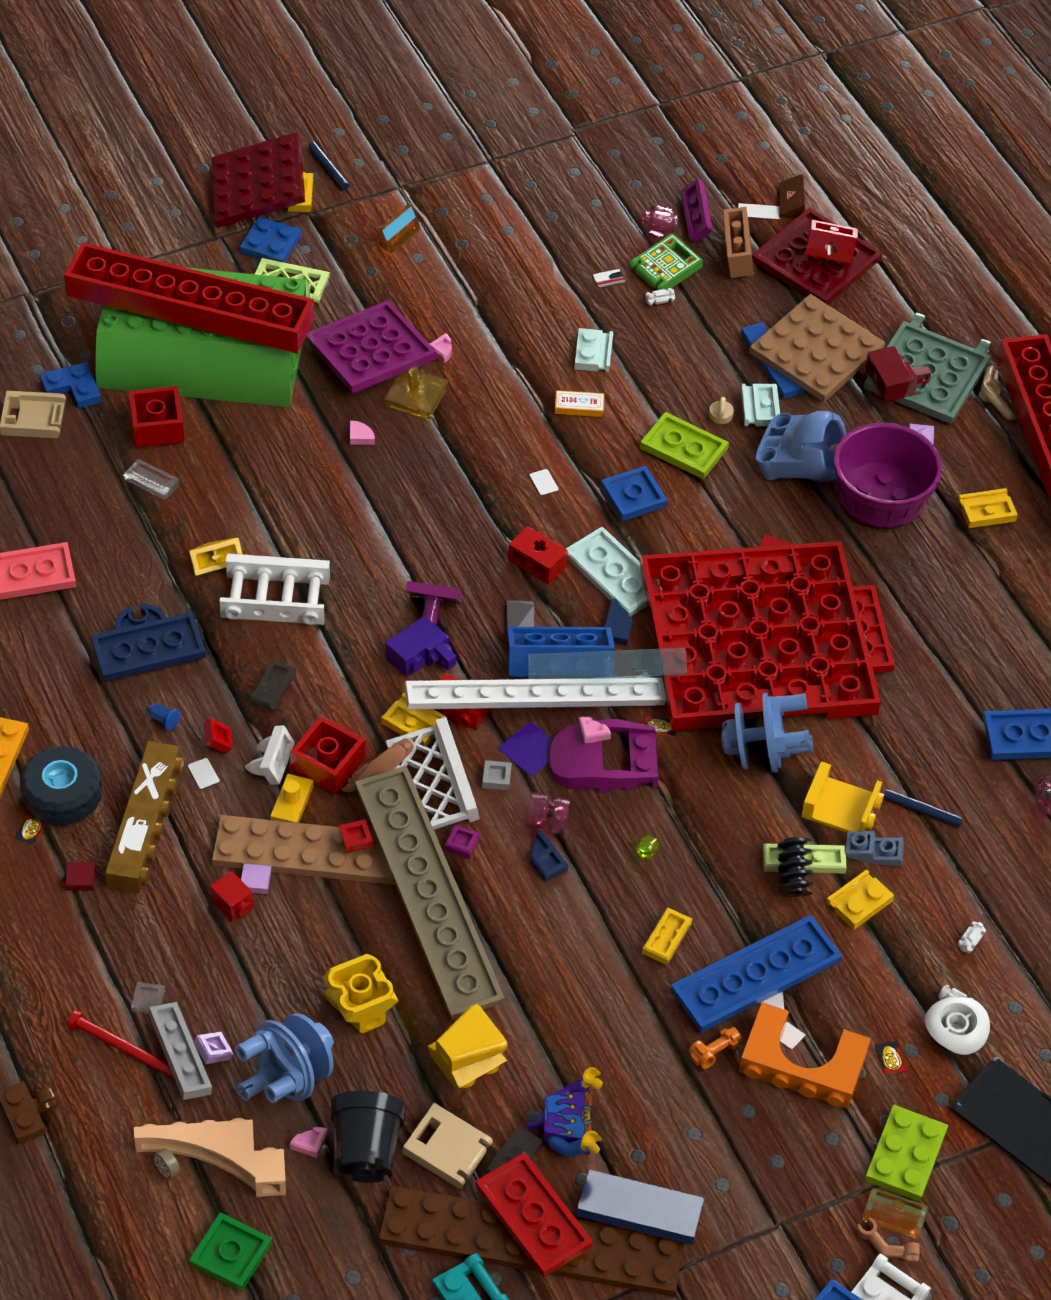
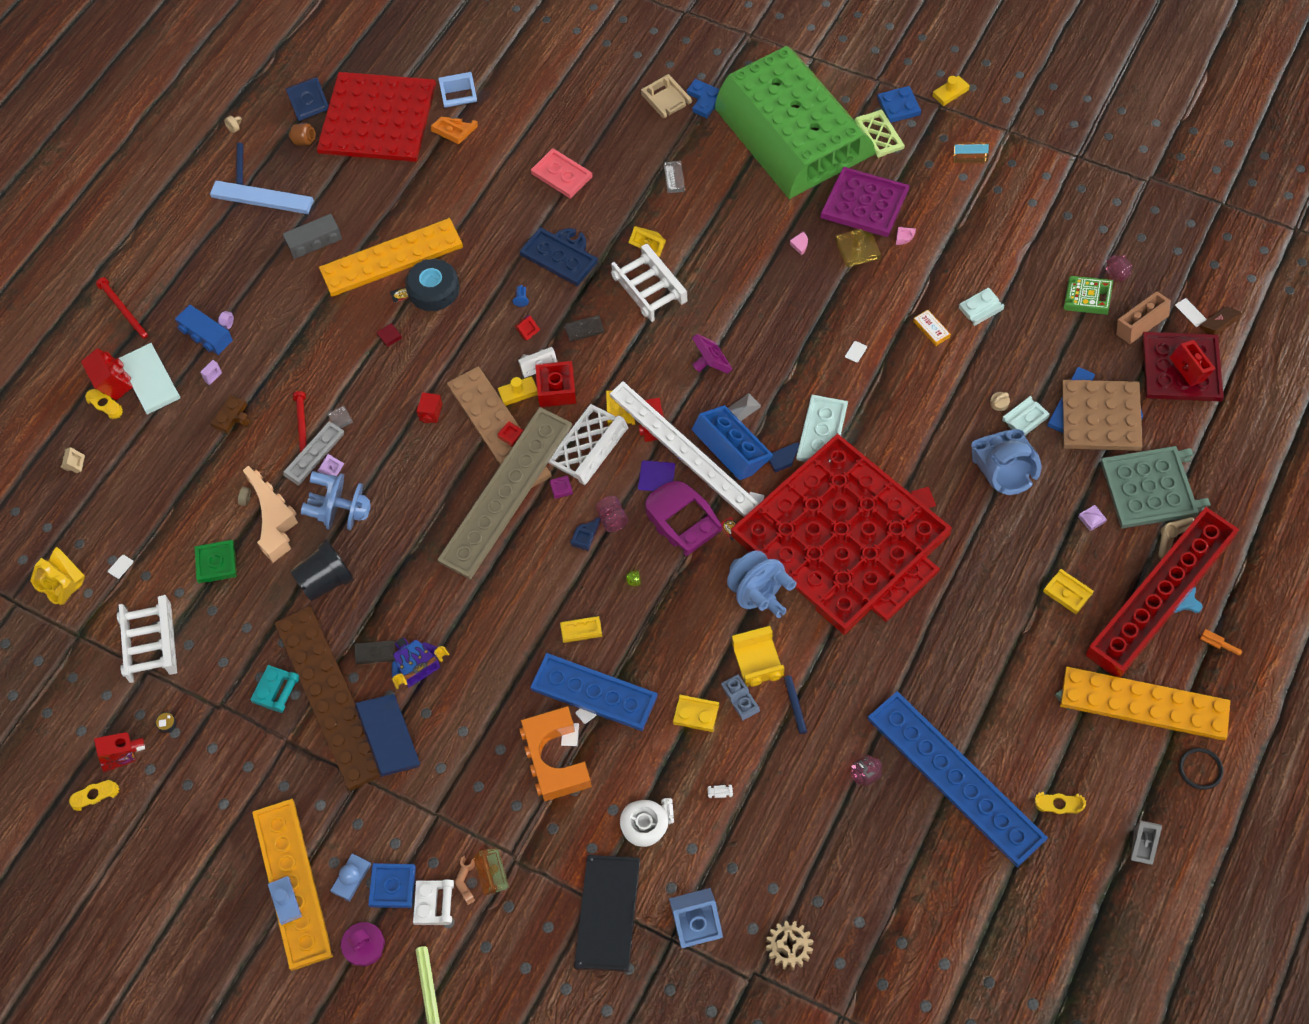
camera: 60 degrees right, 10 degrees up
(144, 818) = (446, 334): pearl gold brick -> none
(156, 416) = (712, 146): red brick -> none
(189, 297) = (783, 94): red brick -> none
(203, 773) = (502, 340): white sticker -> none
(257, 877) = (453, 410): lavender tile -> none
(258, 179) = (932, 64): dark red plate -> none
(310, 1141) = (308, 548): bright pink tile -> none
(328, 165) = (985, 89): dark blue bar -> none
(360, 992) = (412, 506): yellow piece -> none
(384, 762) = (570, 413): nougat animal -> none
(419, 645) = (671, 373): dark purple hinge -> none
(451, 1149) = (355, 618): tan container -> none
(469, 1048) = (420, 582): yellow piece -> none
(497, 775) = (620, 472): light grey tile -> none
(534, 1214) = (336, 684): red plate -> none
(537, 555) = (793, 384): red brick -> none
(593, 730) = (685, 495): bright pink tile -> none
(607, 664) = (736, 470): clear light blue tile -> none
(609, 278) = (1049, 275): sticker -> none
(634, 493) = (888, 399): blue plate -> none
(660, 296) = (1059, 309): white piece -> none
(684, 445) = (952, 400): lime plate -> none
(696, 210) = (1149, 280): magenta plate -> none
(704, 1055) = (516, 699): orange bar -> none
(793, 867) = (681, 661): black piece -> none
(824, 857) = (700, 664): yellowish green tile -> none
(885, 473) = (1025, 514): magenta piece -> none
(891, 1057) = (598, 802): sticker -> none
(893, 375) = (1117, 469): dark red hinge -> none
(906, 1153) = (536, 852): lime plate -> none

